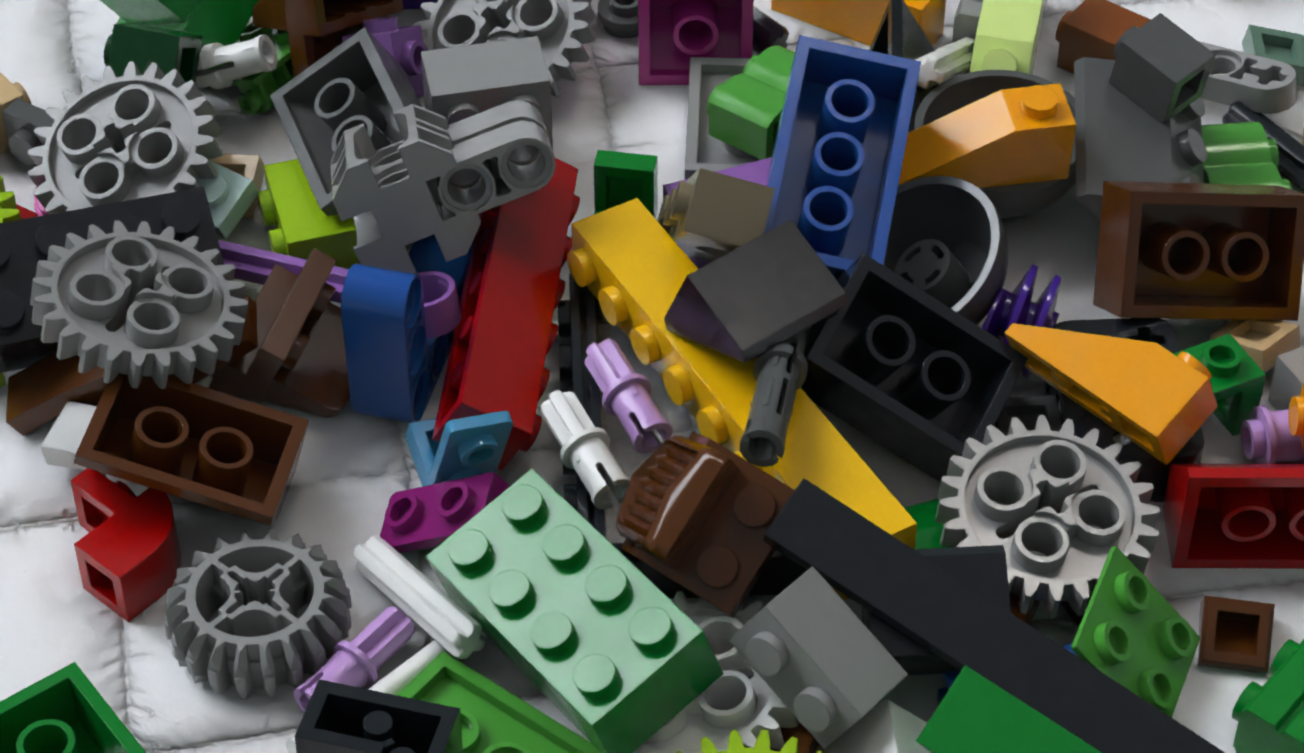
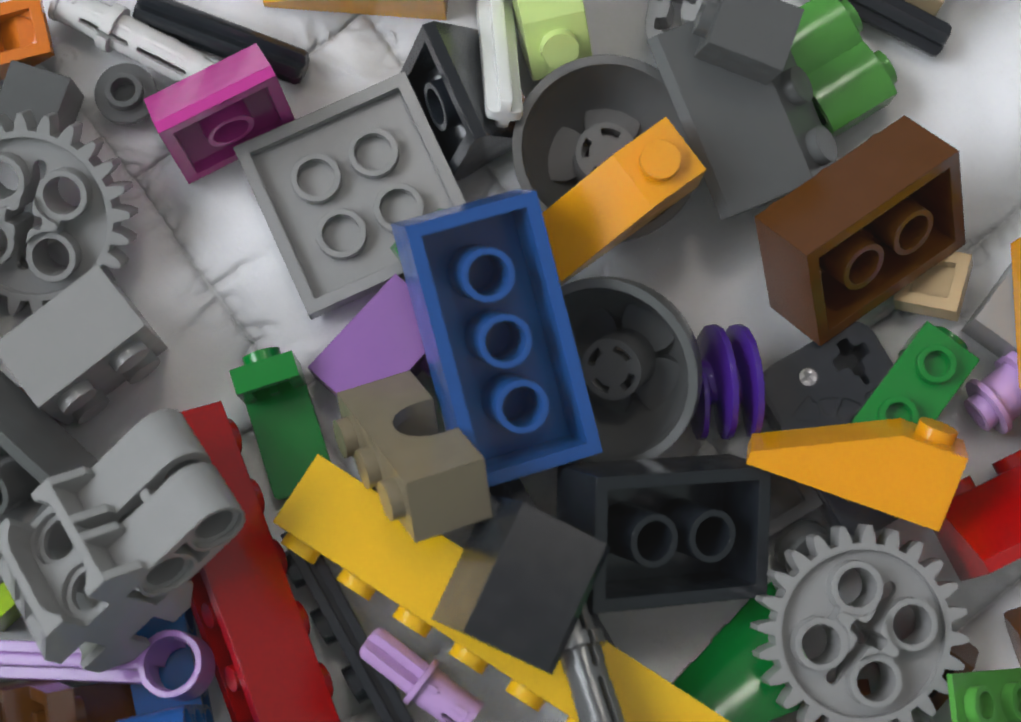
camera: 25 degrees left, 35 degrees up
(750, 104) = (356, 200): bright green brick -> none

